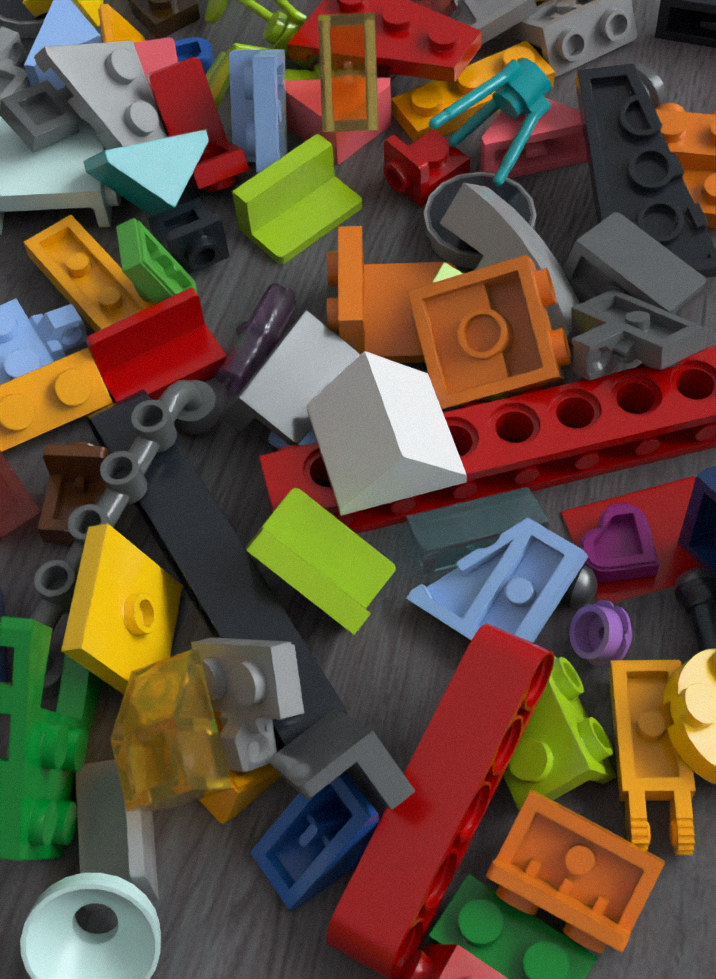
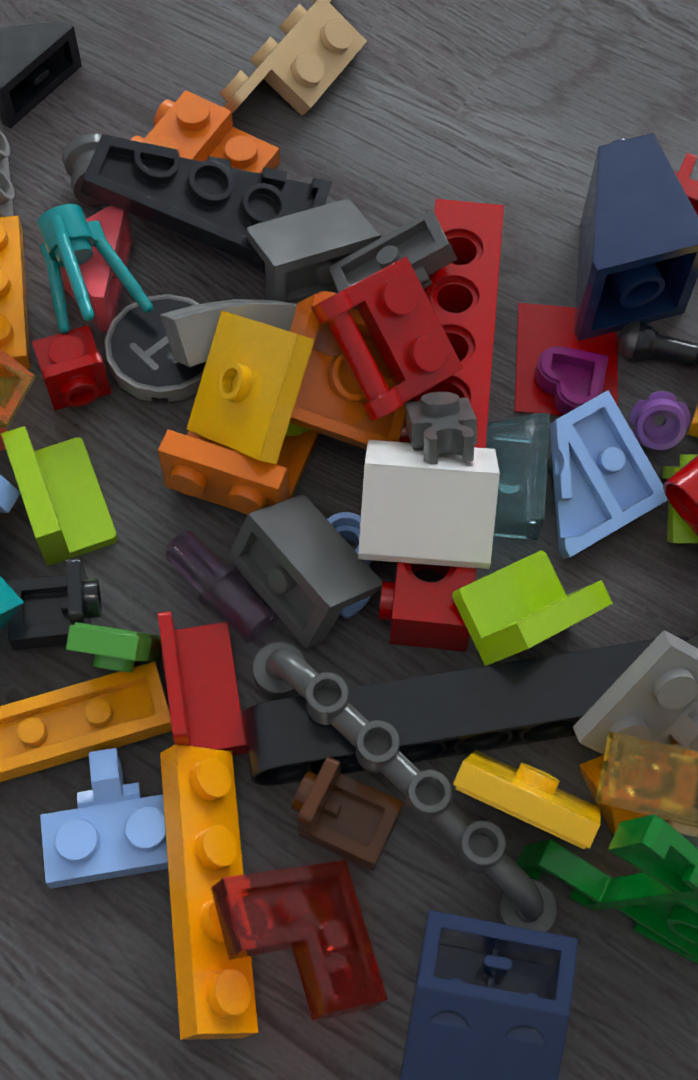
camera: 75 degrees left, 5 degrees up
(427, 260) = (250, 386): none -> yellow plate
(457, 410) = (442, 425): none -> dark grey plate
(543, 343) = (401, 328): none -> red plate

